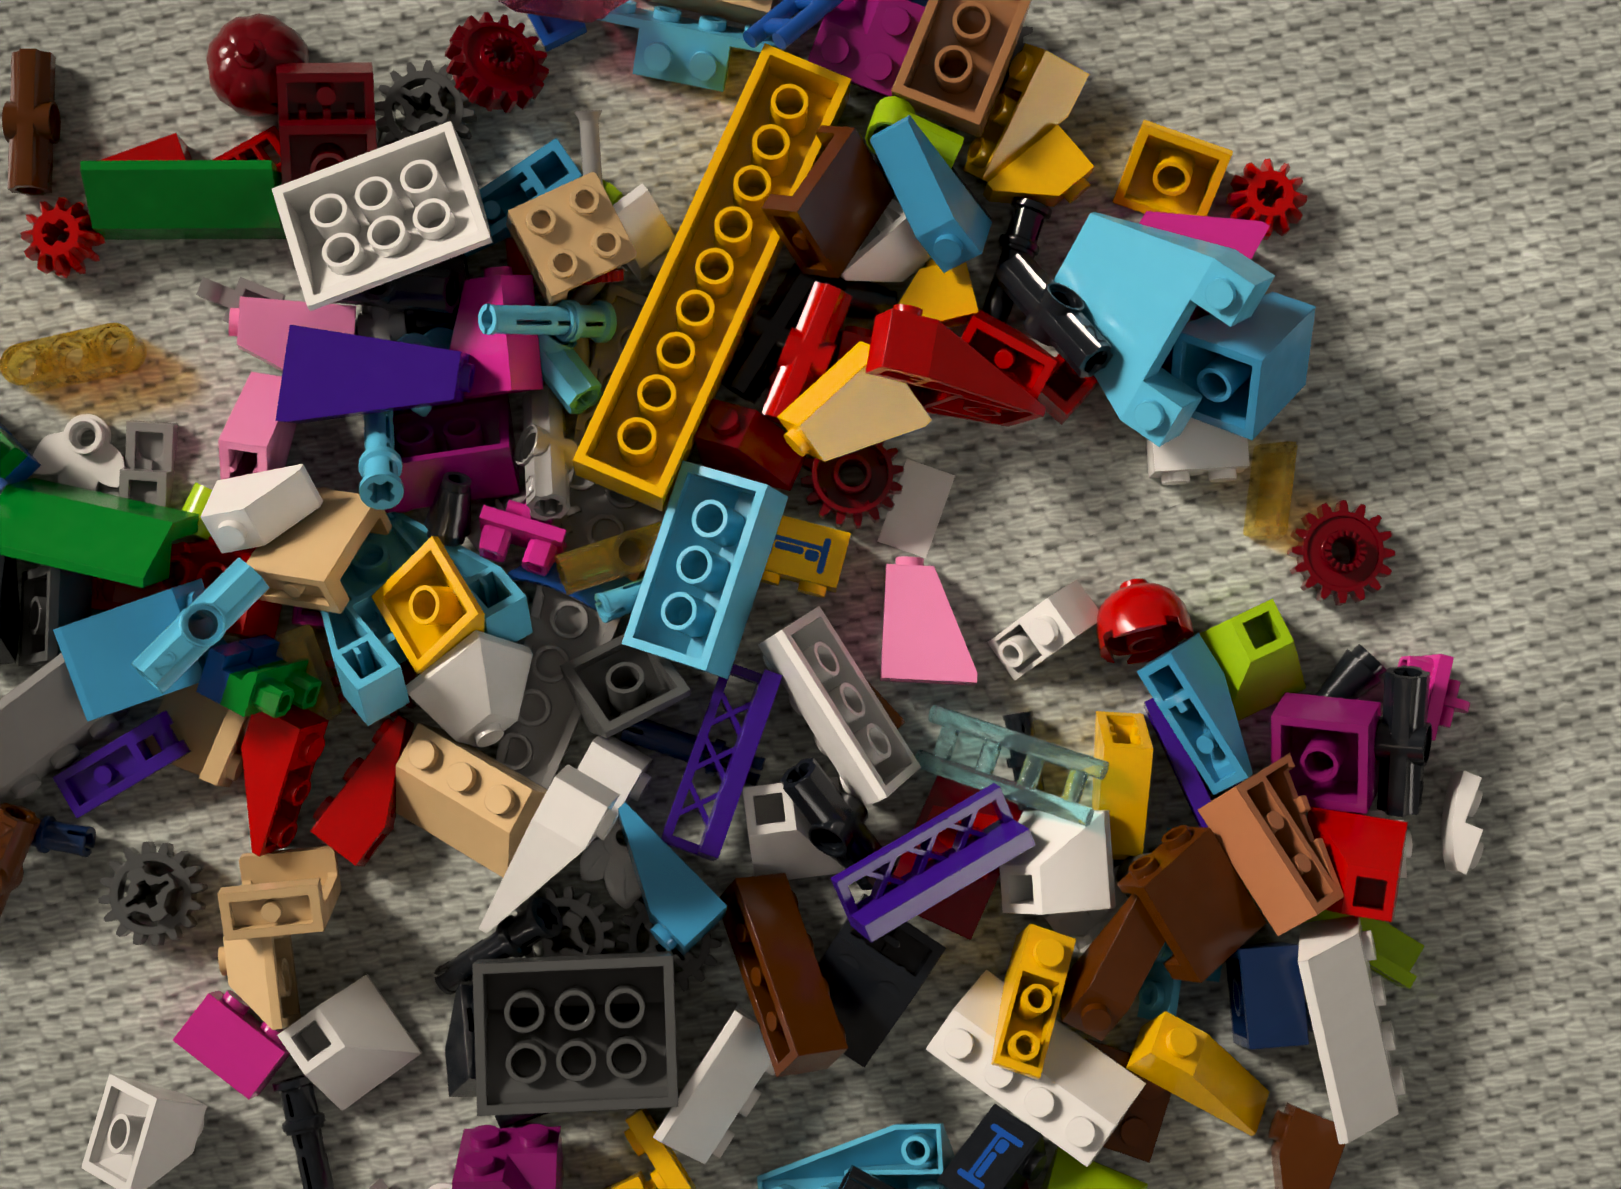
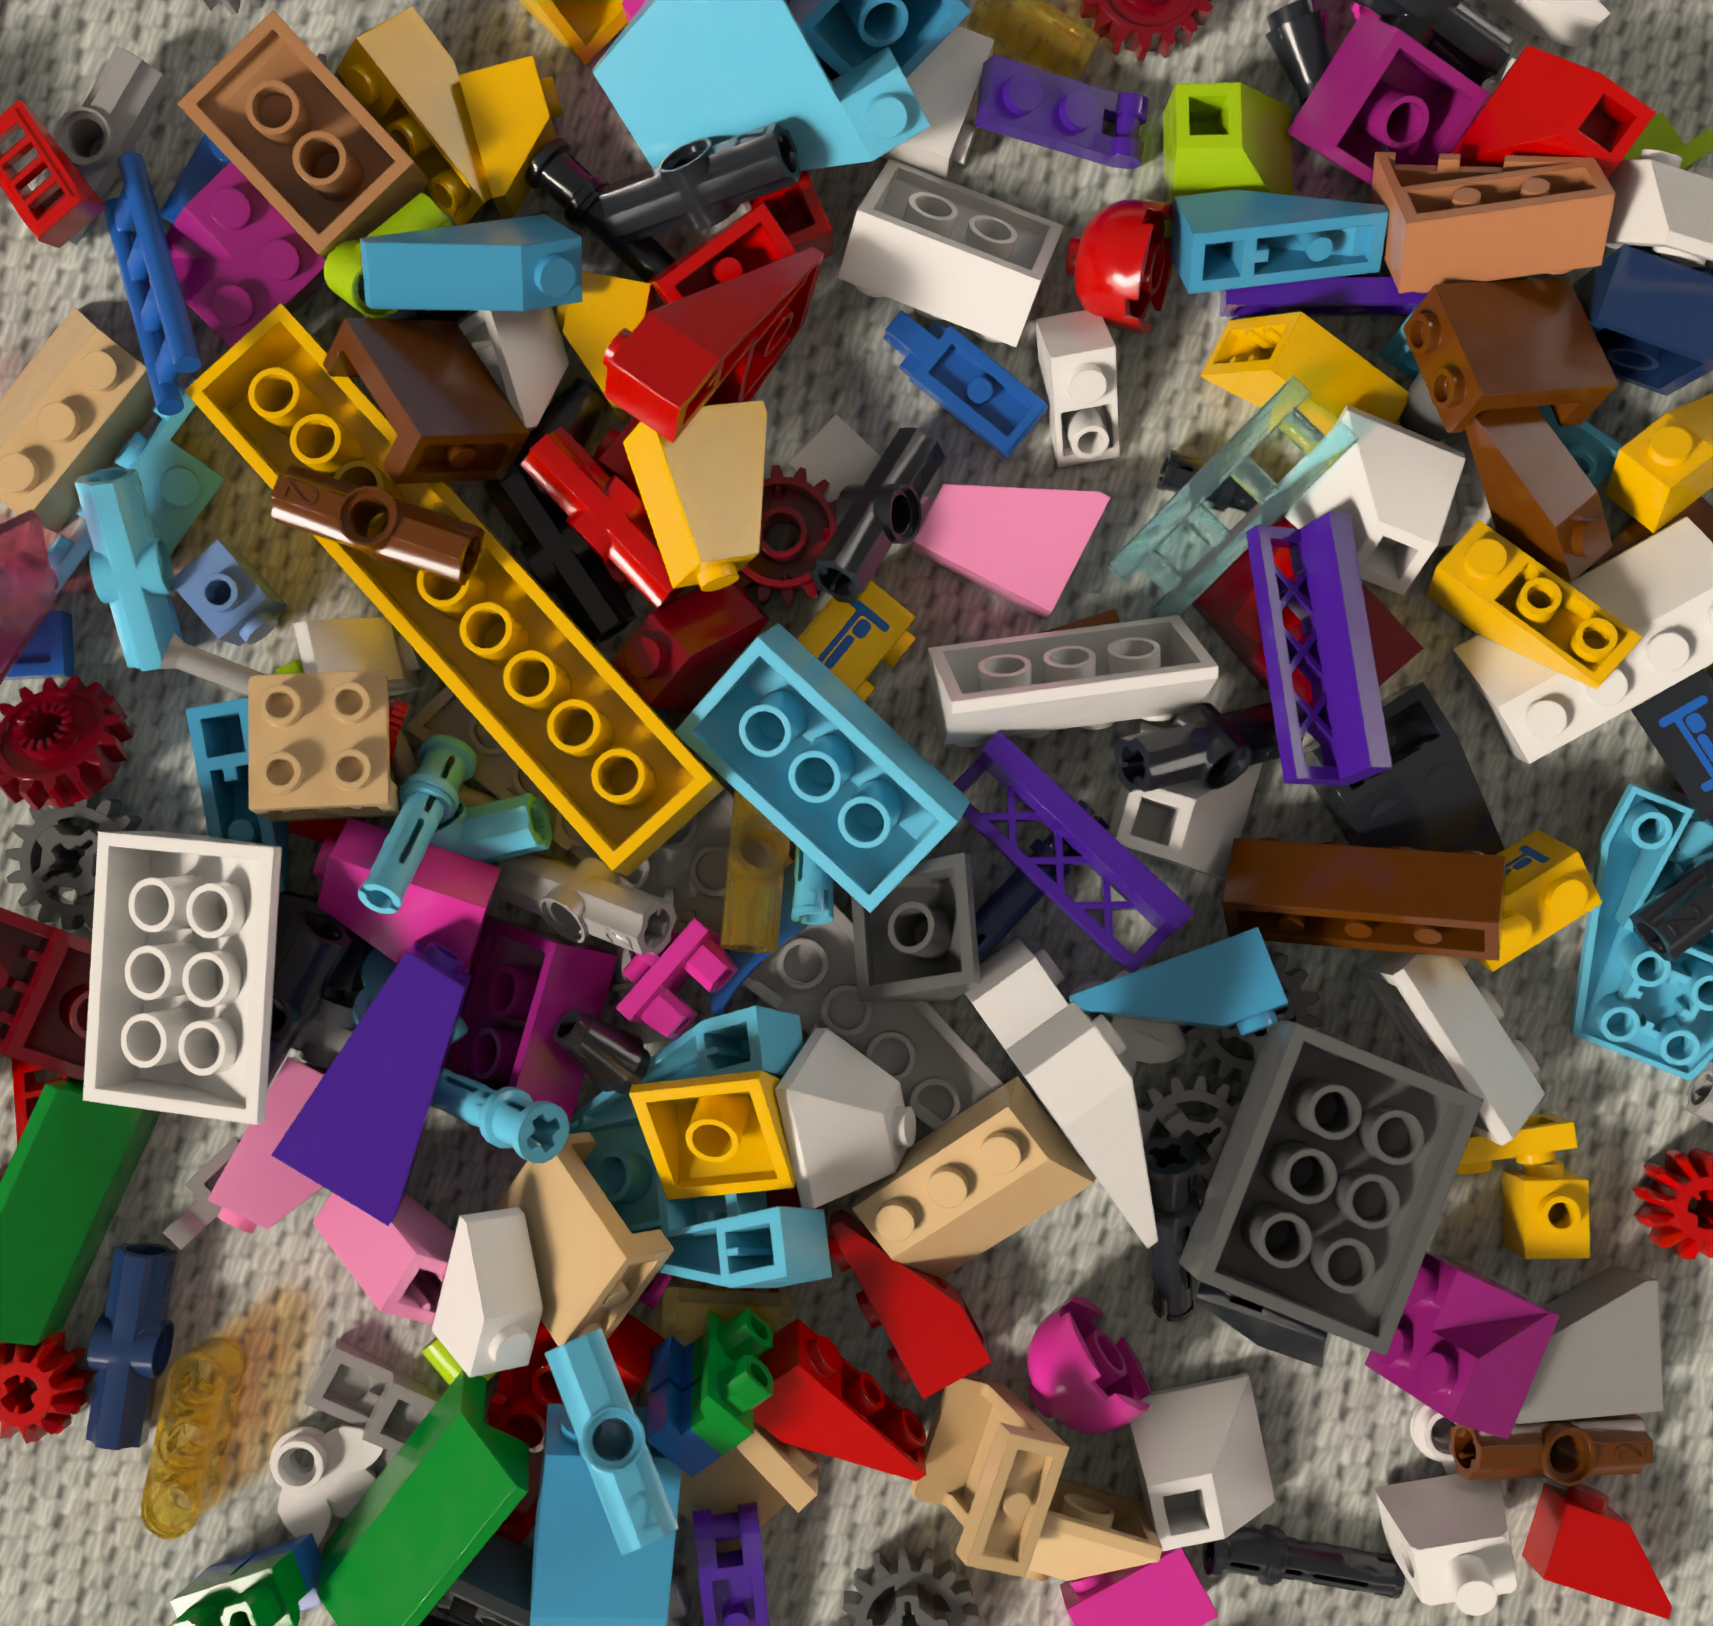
camera: 60 degrees left, 5 degrees up
(116, 289) = (131, 1345): none -> dark blue piece
(374, 932) = (1082, 1373): none -> dark pink cylinder
(633, 60) = (129, 564): none -> medium azure piece
(646, 130) = (229, 594): none -> medium blue brick
(729, 182) = (344, 511): none -> reddish brown piece
(838, 1097) = (1543, 893): none -> yellow brick
(893, 531) = (877, 515): none -> black piece
(1014, 554) = (966, 382): none -> blue hinge
(1098, 502) = (949, 252): none -> white slope
(1224, 533) = (1061, 113): none -> dark purple plate

